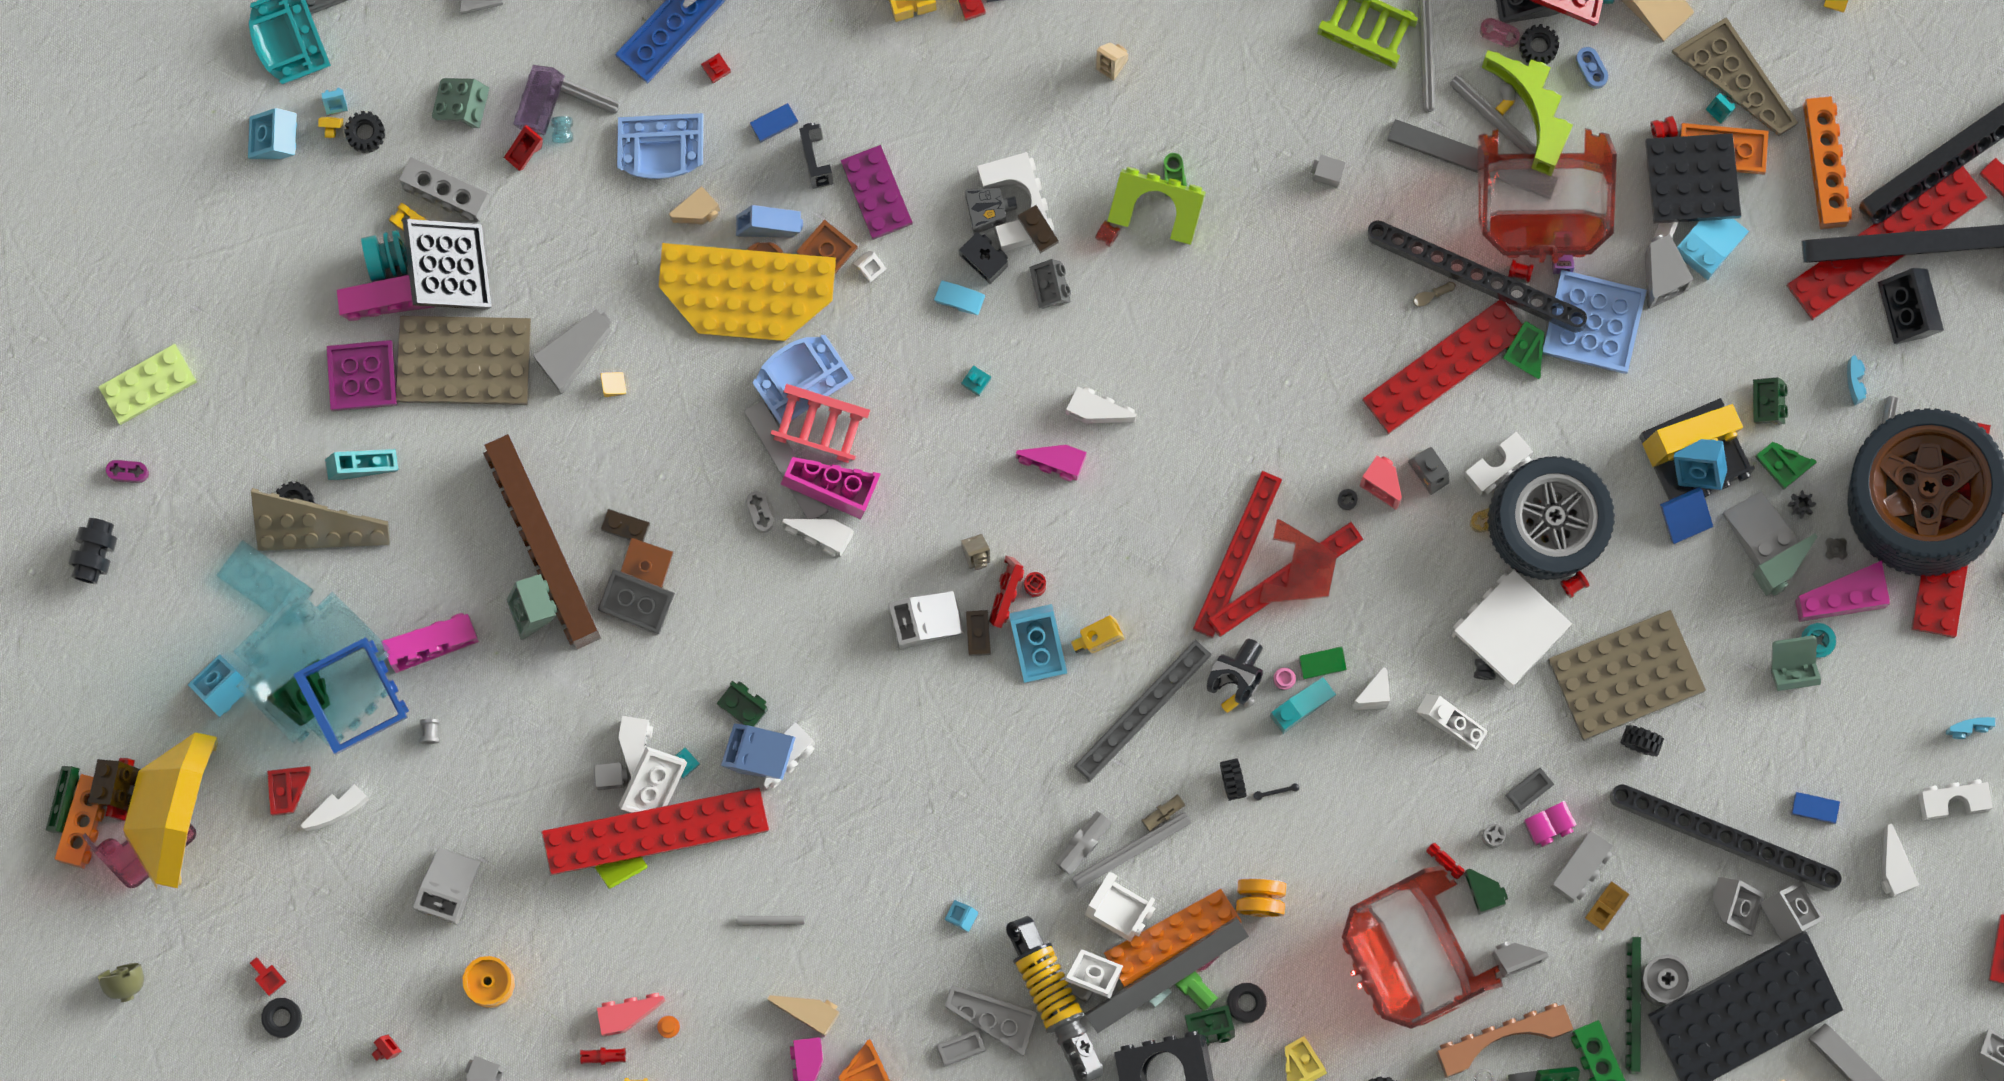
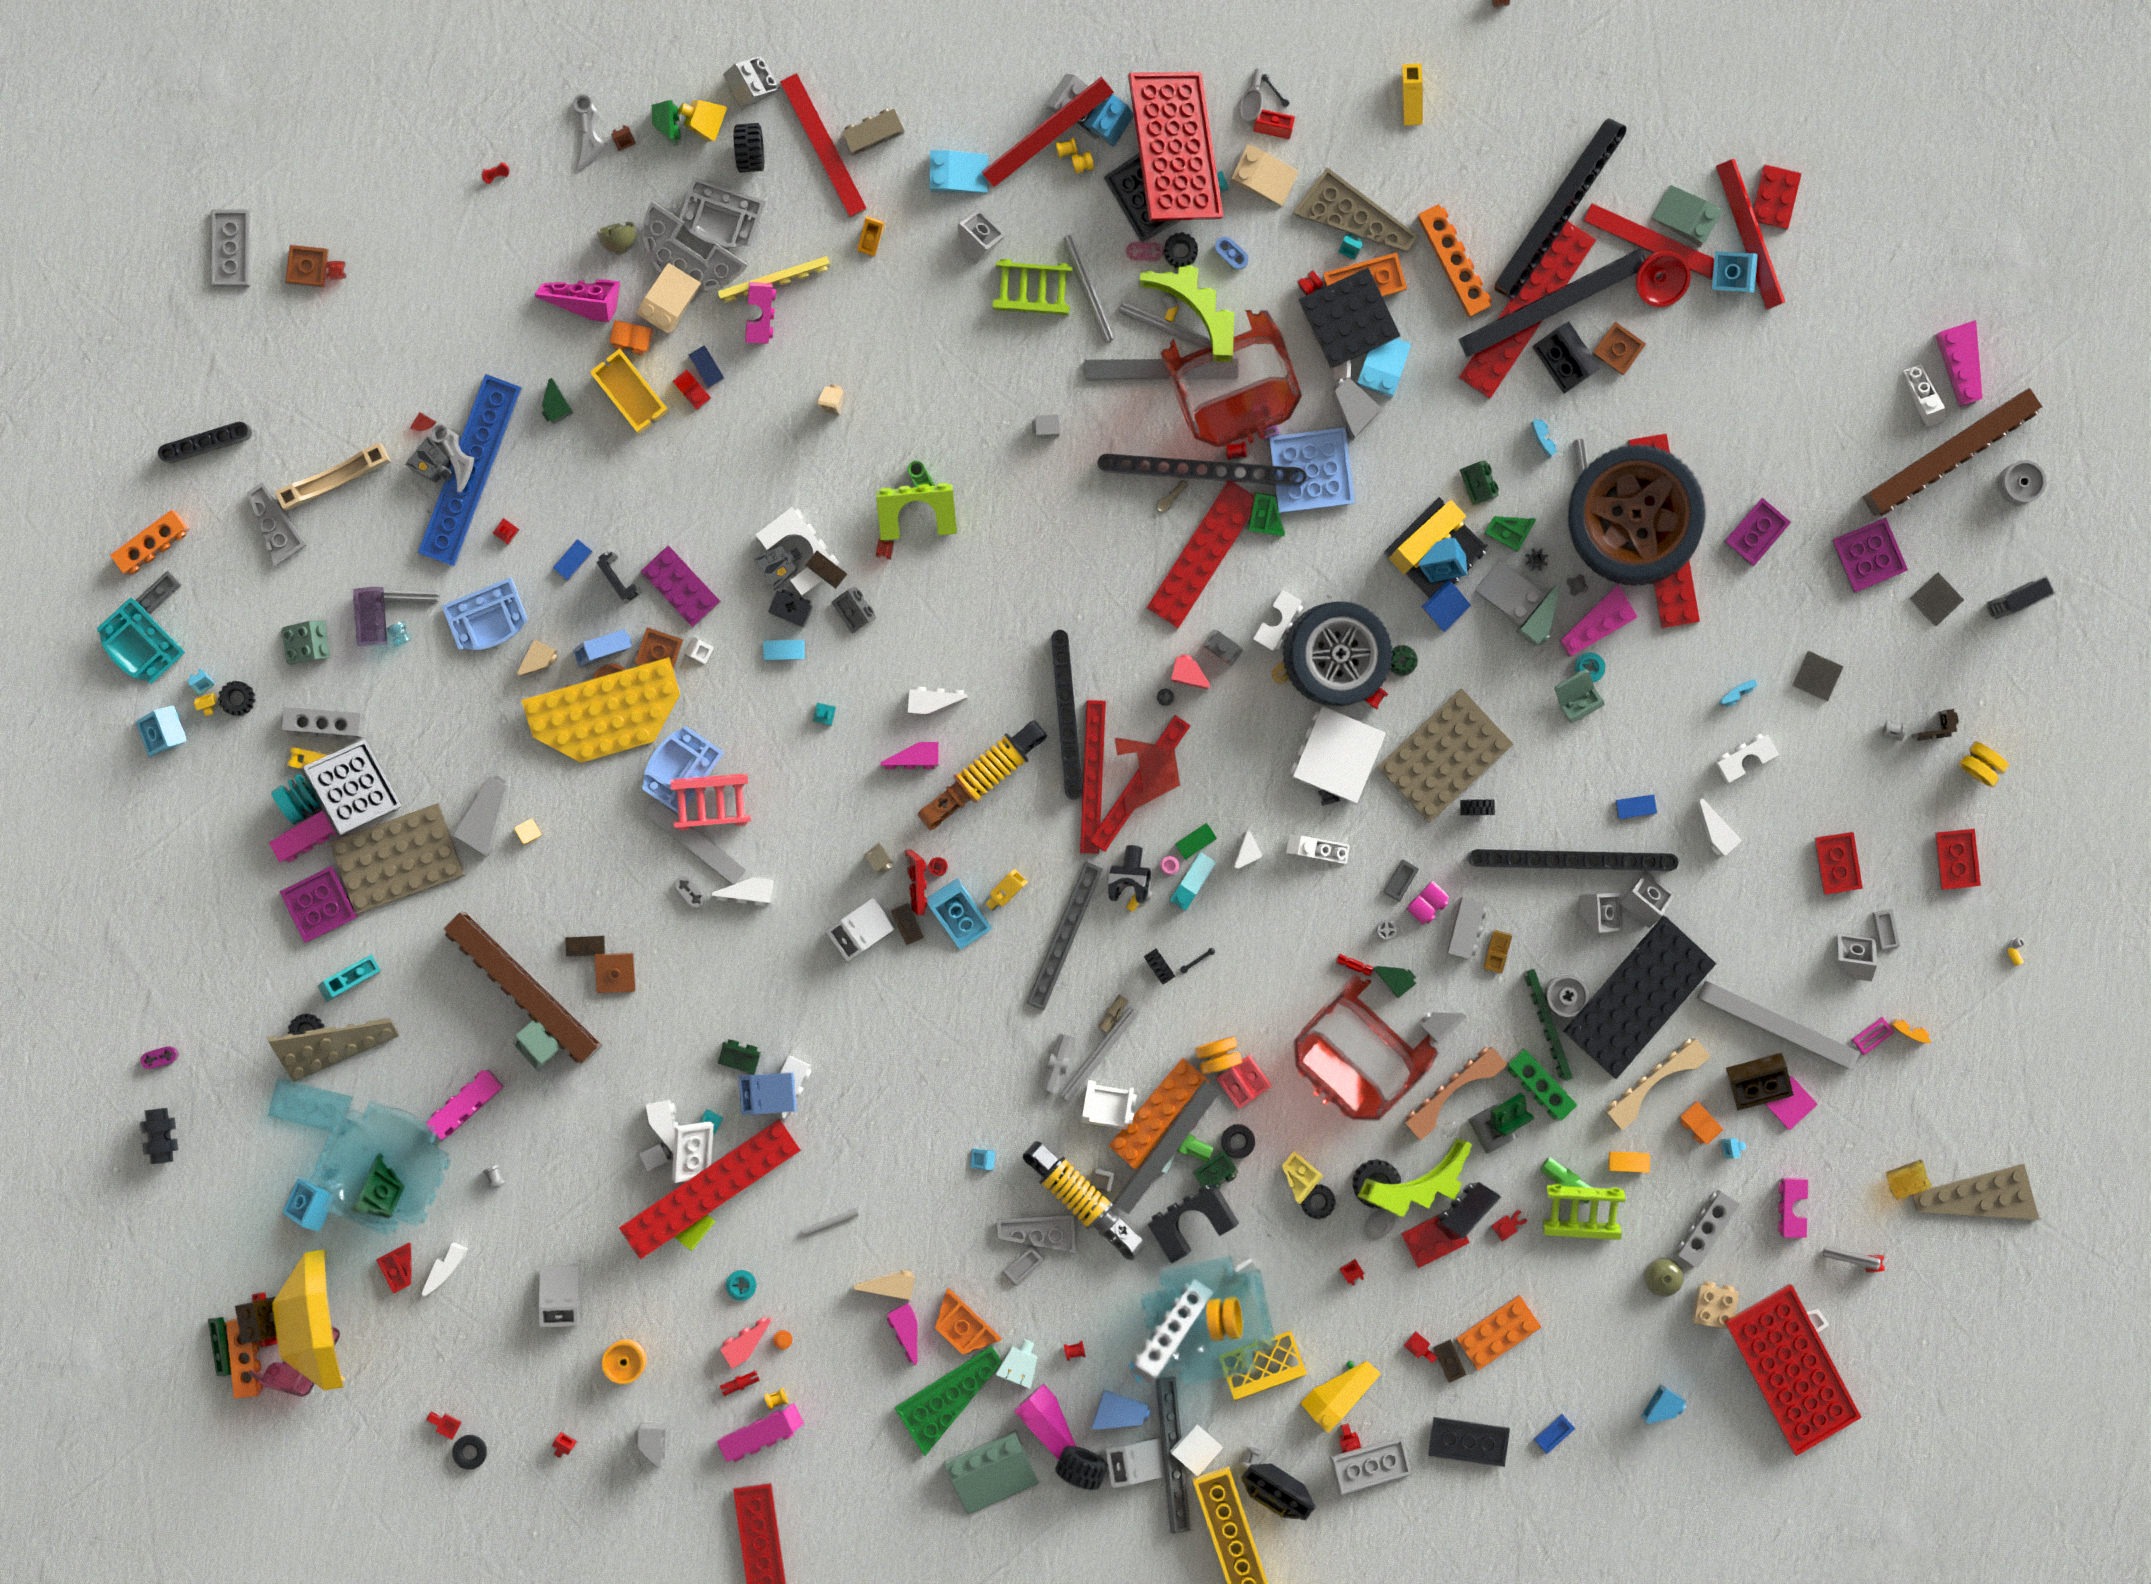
camera: 15 degrees left, 10 degrees up
(122, 982) = (329, 1475): olive cylinder -> none
(147, 384) = (145, 978): yellowish green plate -> none
(317, 710) = (398, 1204): blue window -> none
(523, 148) = (374, 663): red slope -> none
(636, 601) = (619, 1005): dark grey tile -> none
(643, 940) = (735, 1278): none -> teal gear
(832, 485) = (741, 849): dark pink wedge -> none
(1094, 973) = (1108, 1171): white slope -> none
(1108, 507) = (983, 774): none -> piece
(1239, 468) = (1066, 705): none -> black beam
(1277, 941) = (1244, 1082): none -> coral slope
(1609, 562) = (1410, 665): none -> dark green gear
(1971, 318) = (1619, 348): none -> dark orange plate

